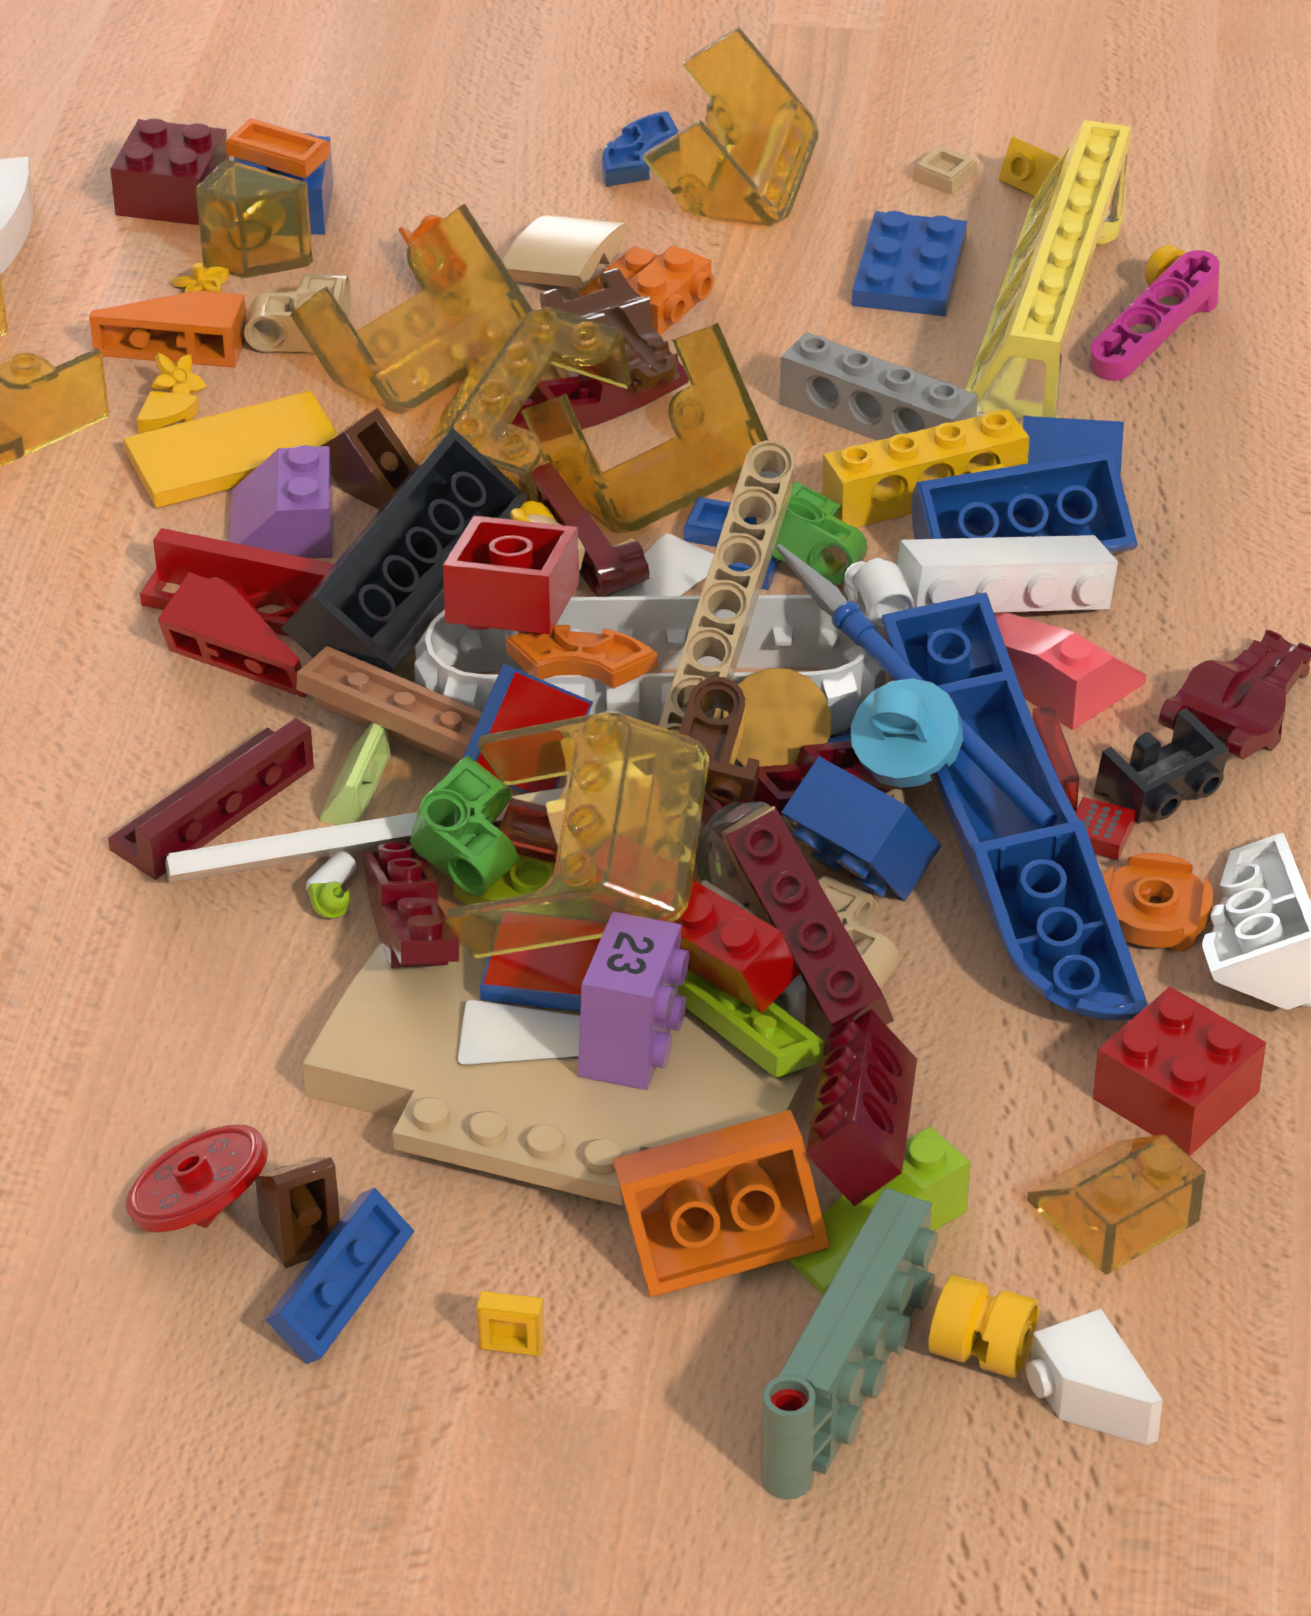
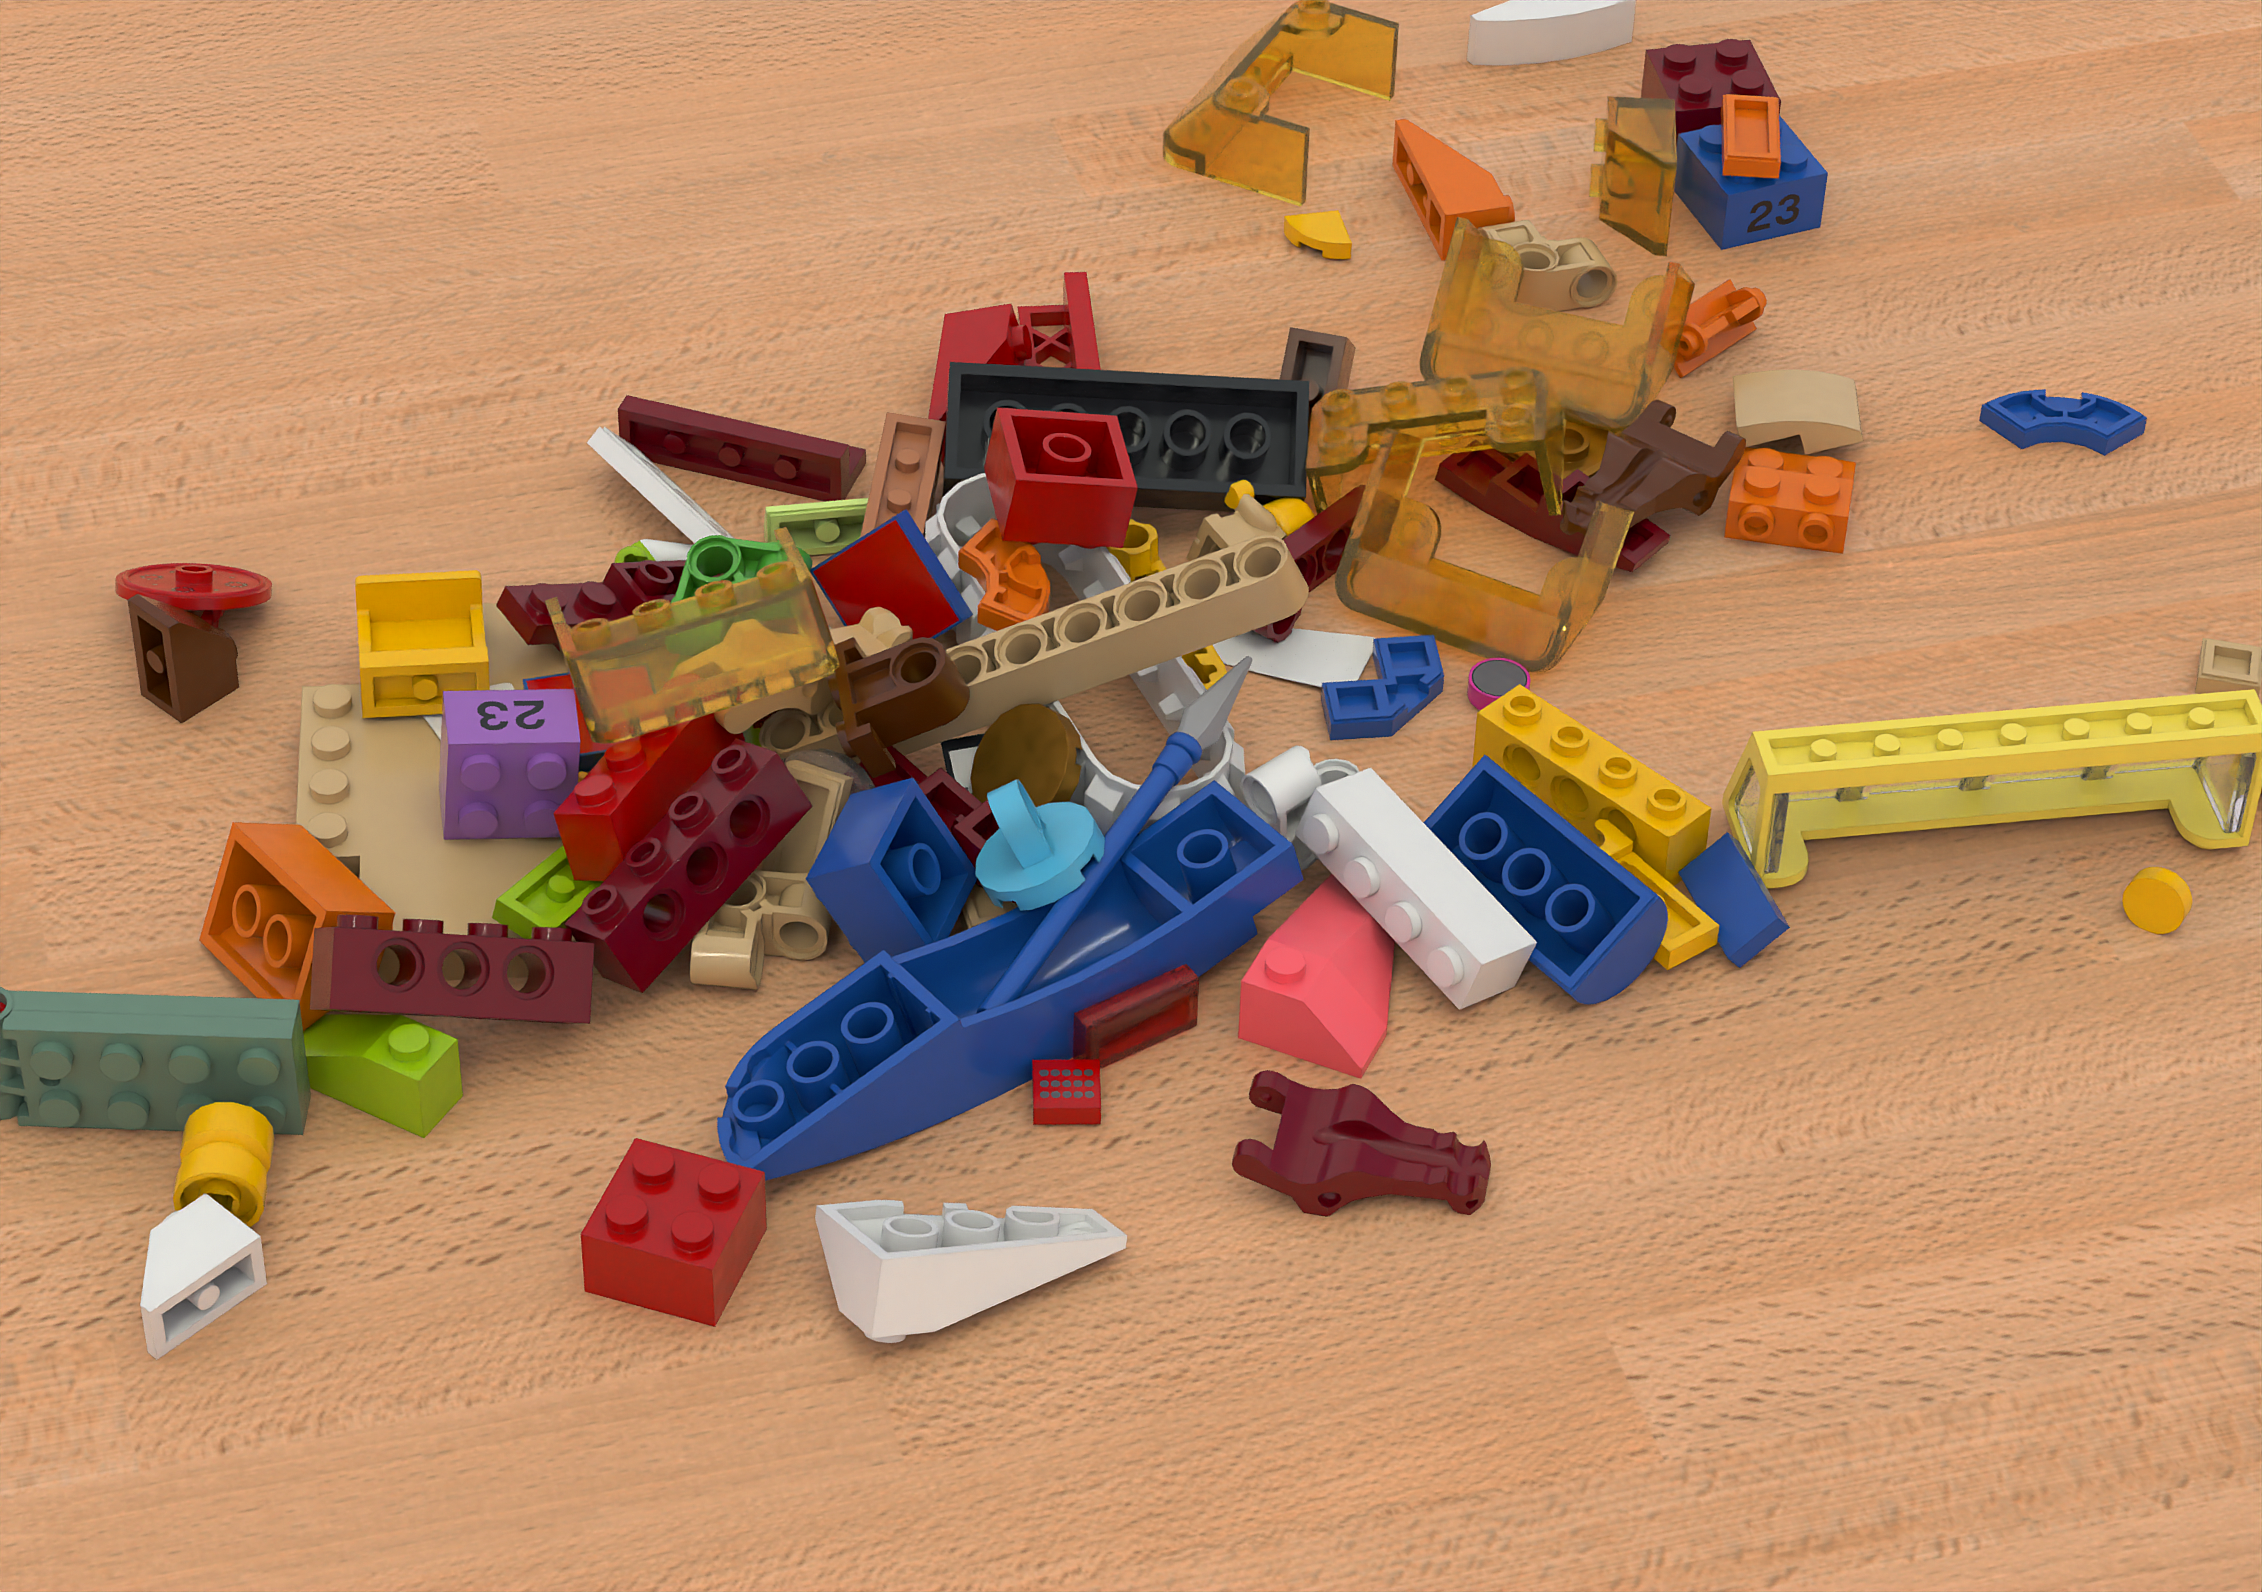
camera: 65 degrees right, 0 degrees up
(177, 377) = (1373, 220): yellow plant -> none
(203, 279) = (1562, 189): yellow plant -> none
(223, 447) = (1285, 286): yellow tile -> none
(286, 504) = (1218, 344): medium lavender slope -> none
(340, 1276) = (118, 718): blue plate -> none
(411, 1034) = (419, 640): none -> yellow panel
(510, 1323) = (99, 844): yellow tile -> none
(764, 136) = (2166, 508): clear yellow windscreen -> none
(812, 529) = (1407, 720): bright green piece -> none
(865, 391) = (1698, 702): light grey brick -> none
(909, 263) = (2007, 674): blue plate -> none
(1124, 1199) = (463, 1238): clear yellow slope -> none
(1167, 774) = (1172, 1115): black window -> none
(1184, 900) = (951, 1126): orange plate -> none
(1190, 279) = (2137, 931): dark pink beam -> none

